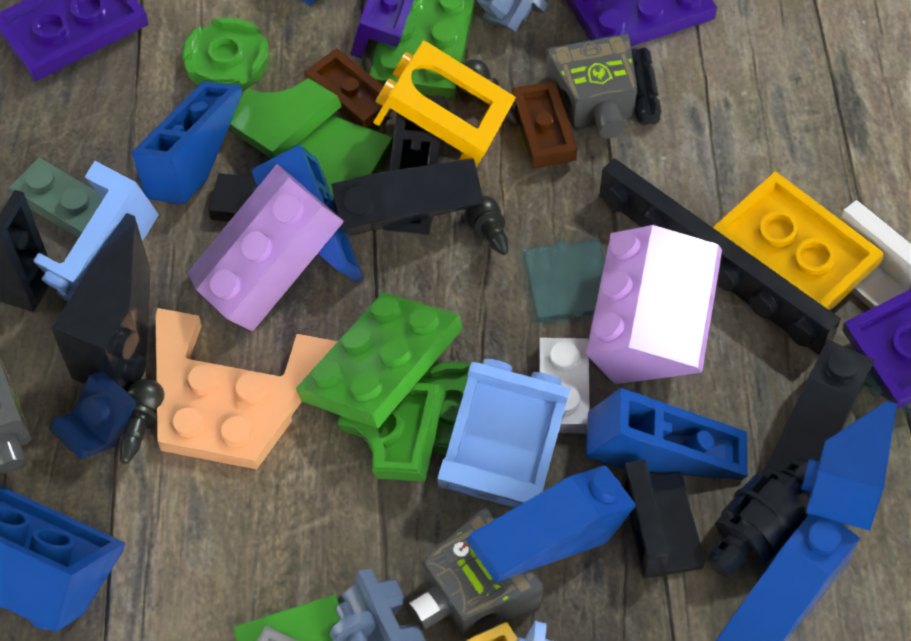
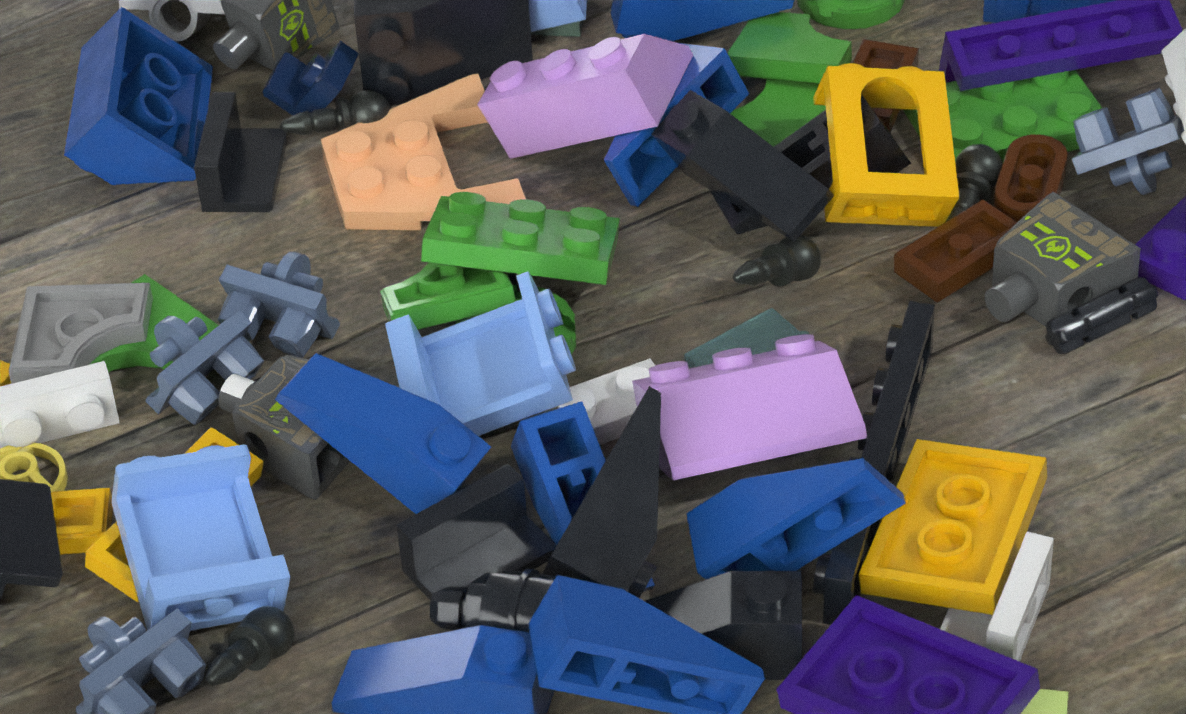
camera: 65 degrees right, 15 degrees down
(137, 508) = (237, 165): none -> black panel
(360, 535) = (283, 295): none -> sand blue hips
(508, 58) = (1029, 173): none -> reddish brown plate
(715, 414) = (620, 512): none -> black slope
(768, 341) = (788, 517): none -> blue slope

